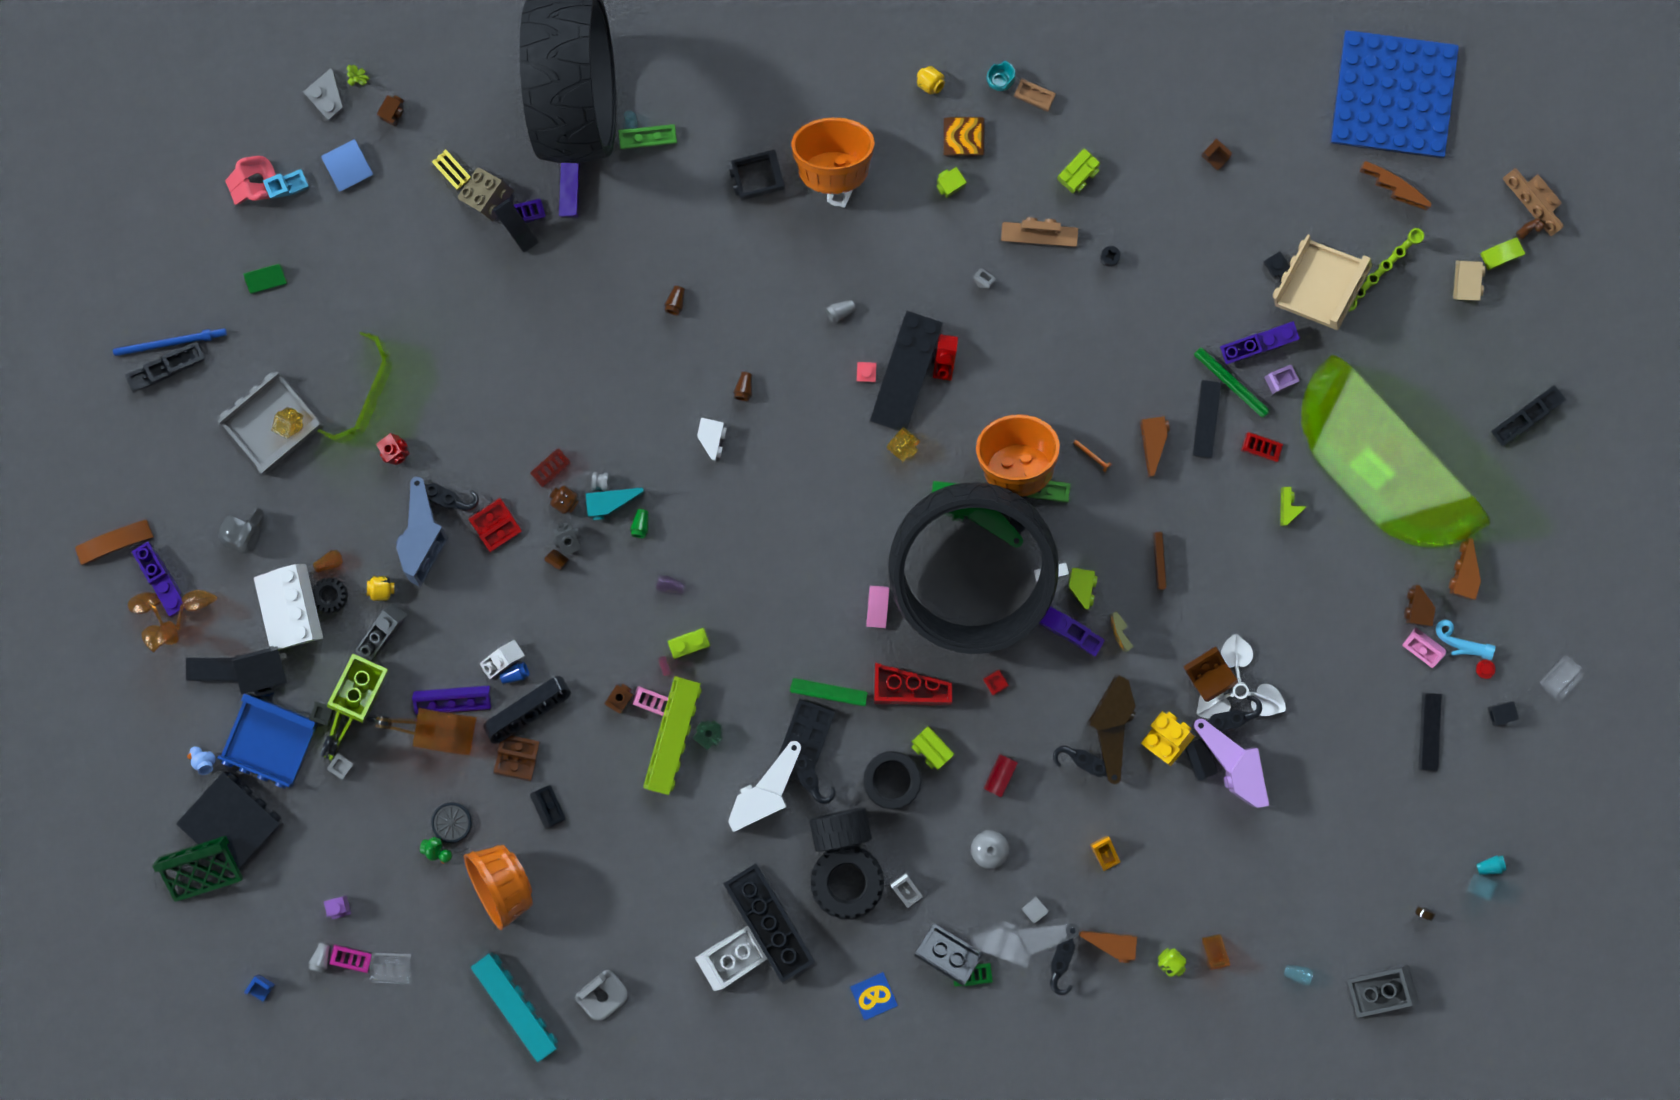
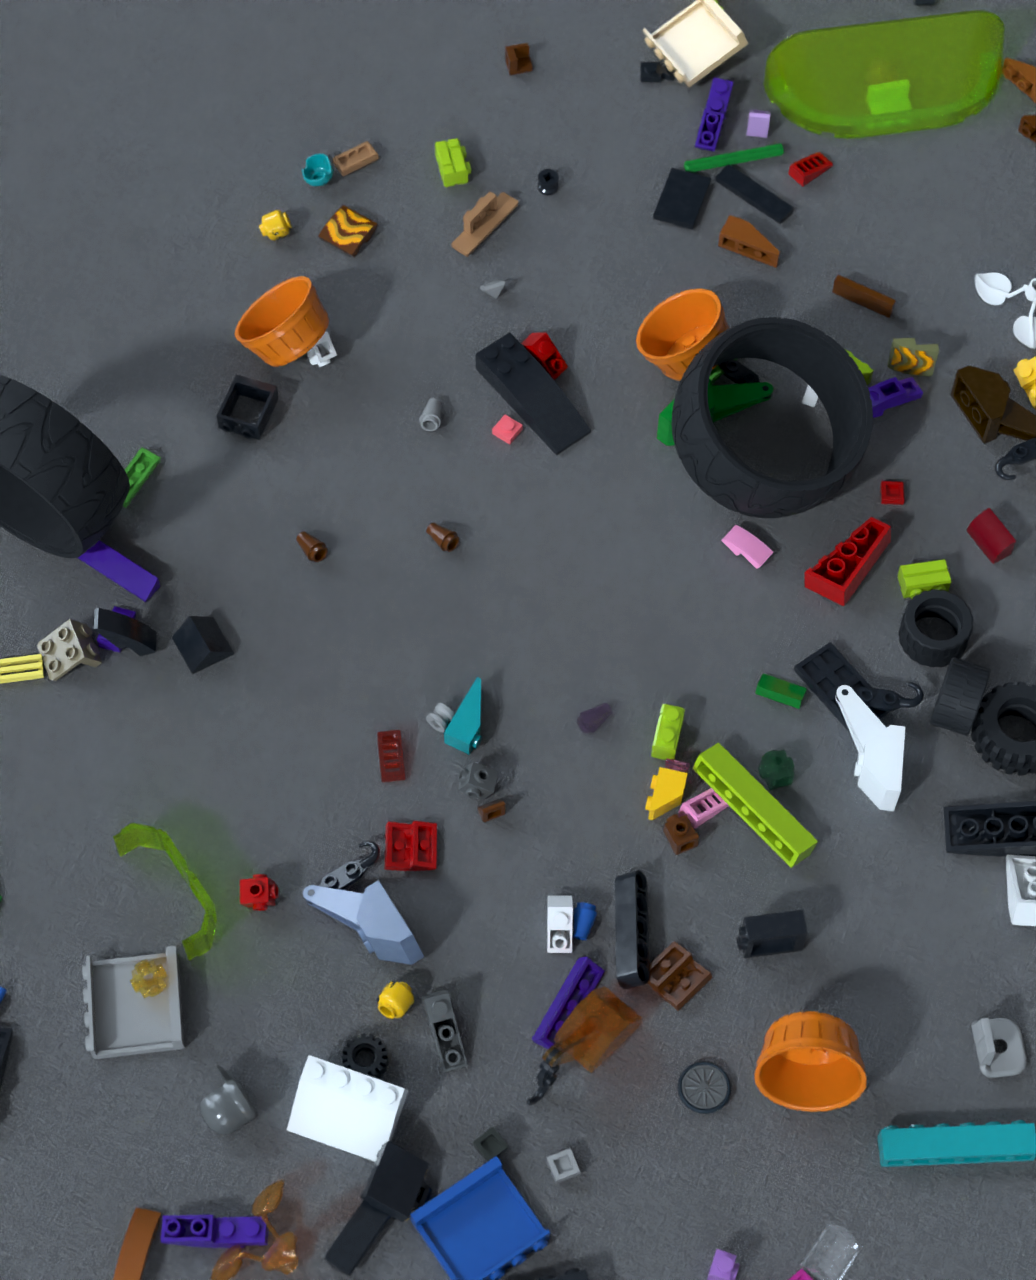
camera: 60 degrees left, 25 degrees down
(329, 561) = (327, 1036): clear orange cone -> none
(353, 697) = (496, 1088): lime slope -> none
(433, 850) = (722, 1124): green animal -> none
(547, 806) = (750, 978): black slope -> none
(551, 279) = (201, 643): none -> black slope
(563, 499) = (434, 761): reddish brown head -> none
(579, 804) = (772, 934): none -> black window
(640, 524) = (514, 709): green cone -> none
(645, 670) = (667, 793): none -> yellow slope
(710, 436) = (470, 593): white slope -> none
(777, 699) = (780, 691): none -> green slope
(828, 692) = (806, 640): green slope -> none
(903, 445) = (602, 433): clear yellow brick -> none
(950, 182) = (381, 261): lime brick -> none
(1093, 456) = (742, 290): orange piece -> none
(1165, 366) = (682, 198): none -> black tile
(1210, 674) = (1004, 313): reddish brown bracket -> none
(1288, 512) = (884, 178): lime slope -> none

